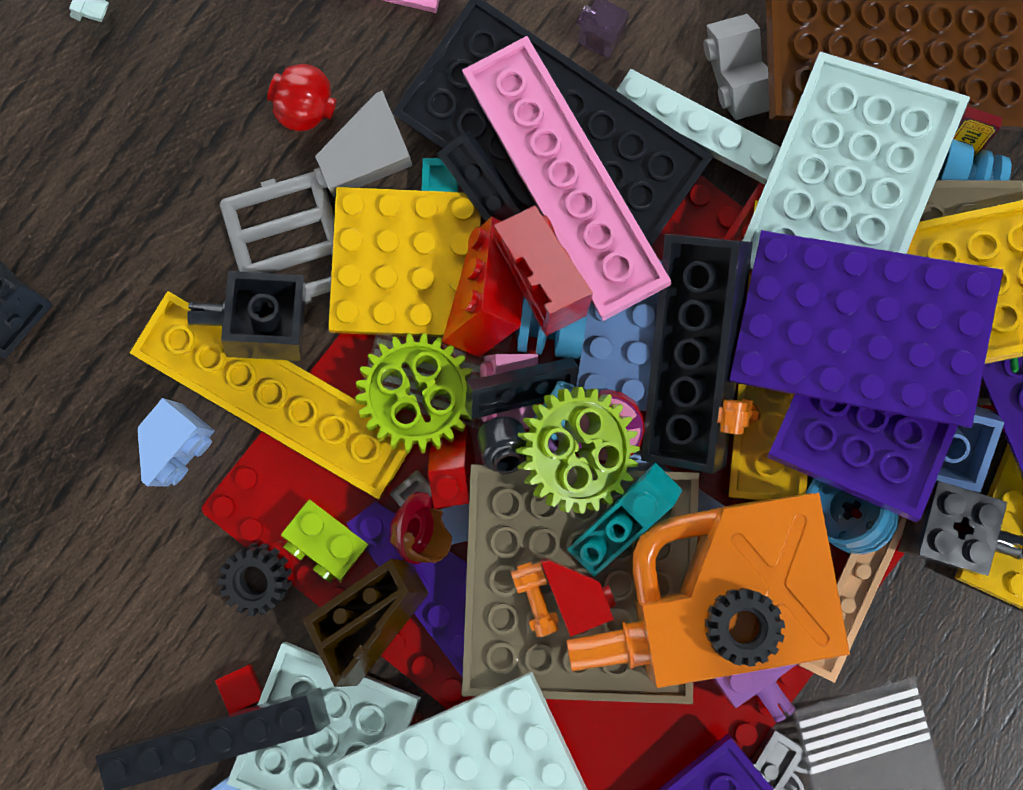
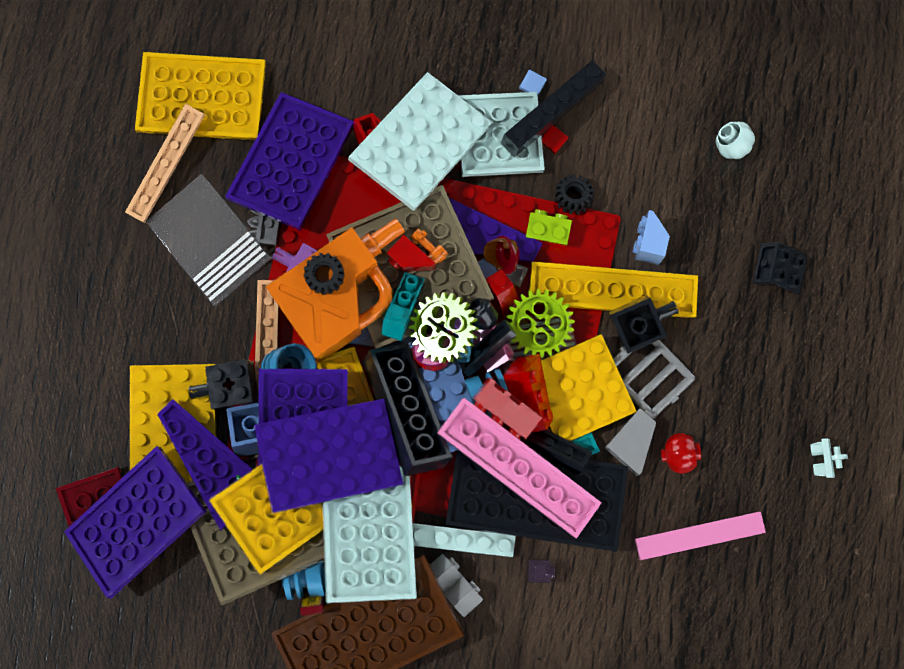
camera: 155 degrees right, 5 degrees down
(365, 620) = (508, 198): dark brown wedge -> none
(737, 415) = (372, 382): orange bar -> none

